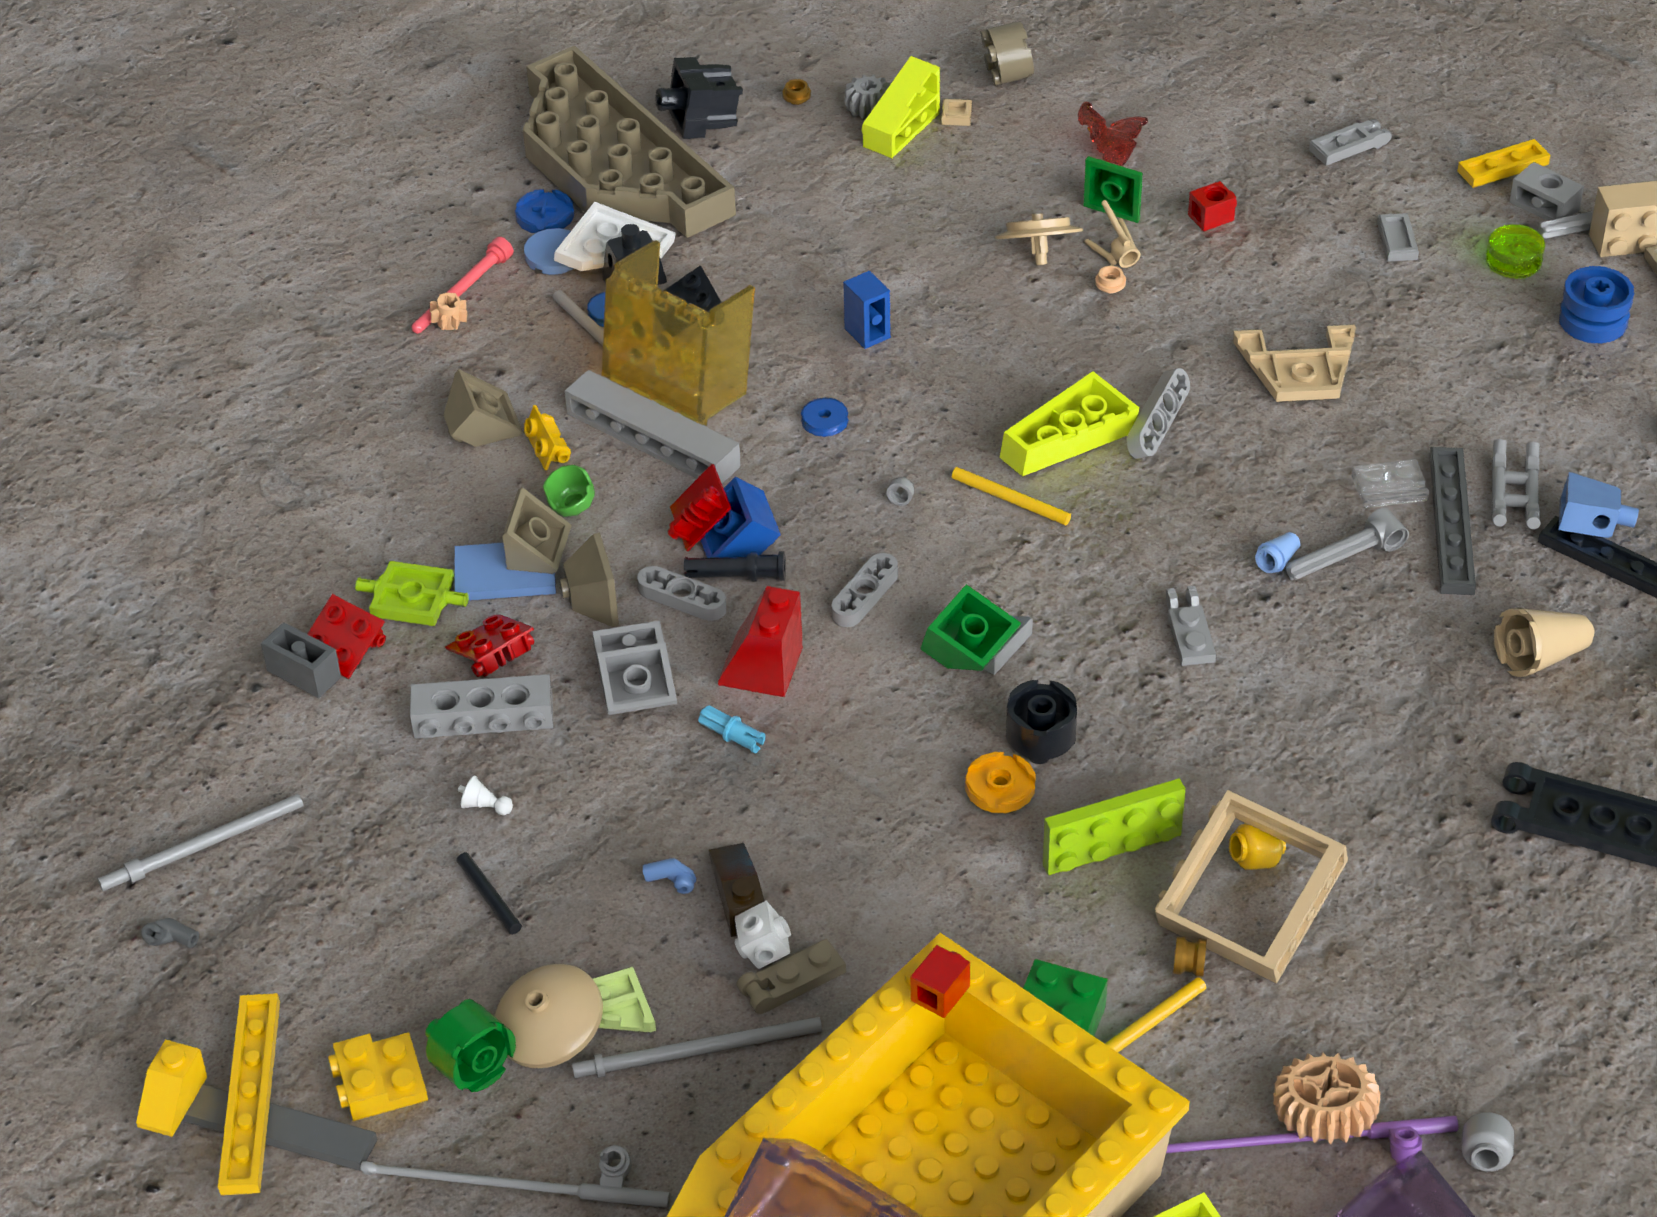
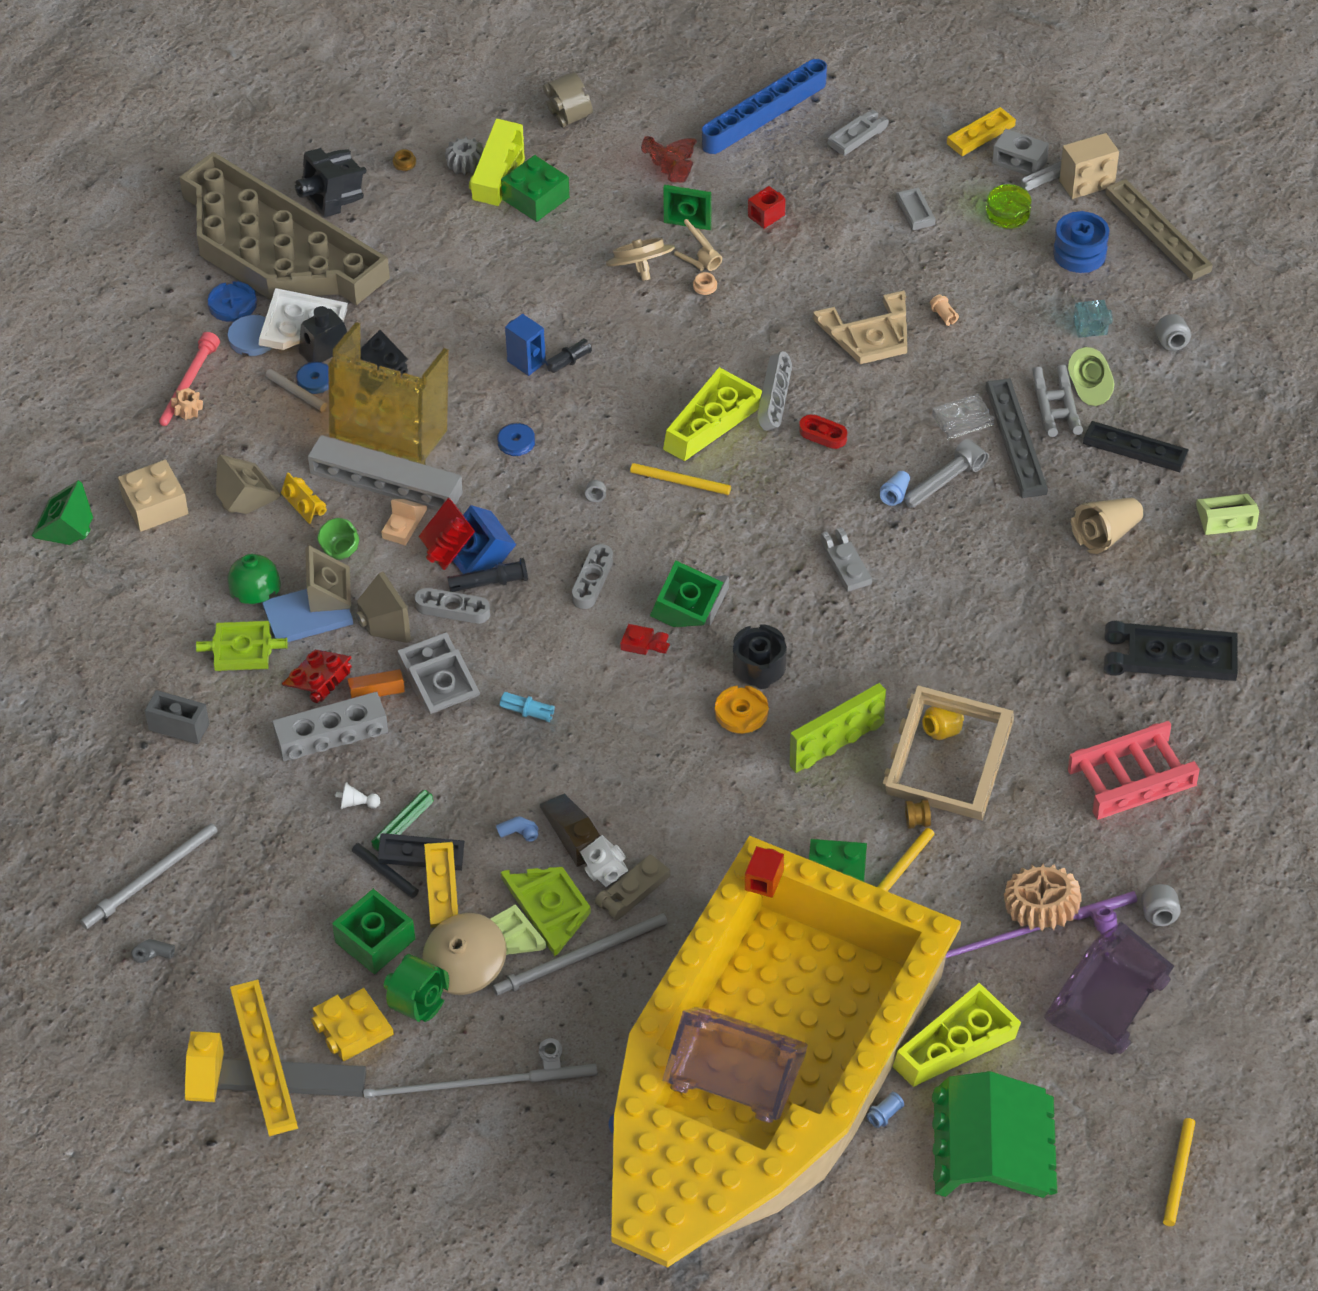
camera: 15 degrees left, 5 degrees up
(262, 412) = (65, 516): none -> green slope
(348, 631) = (203, 685): red hinge -> none
(370, 405) = (153, 495): none -> tan brick
(443, 963) = (373, 931): none -> green brick
(451, 518) = (253, 579): none -> green cylinder
(530, 836) = (405, 816): none -> axle
(538, 878) = (410, 850): none -> black plate
(548, 919) = (440, 882): none -> yellow plate
(562, 668) = (384, 683): none -> orange slope
(657, 485) = (403, 520): none -> light nougat slope
(678, 975) = (550, 903): none -> lime wing
(766, 645) = (533, 636): red slope -> none
(902, 674) = (641, 639): none -> red plate
(918, 333) = (568, 356): none -> black axle
(939, 143) = (535, 188): none -> green brick
(956, 112) = (540, 151): tan tile -> none
(1205, 470) = (823, 431): none -> red plate
(1242, 96) = (764, 106): none -> blue beam
(1397, 350) = (945, 311): none -> light nougat pin
(1500, 986) = (1130, 792): none -> coral fence
(1565, 451) = (1091, 376): none -> yellowish green piece
(1587, 395) = (1092, 318): none -> clear light blue brick
(1593, 507) = (1118, 410): medium blue torso -> none

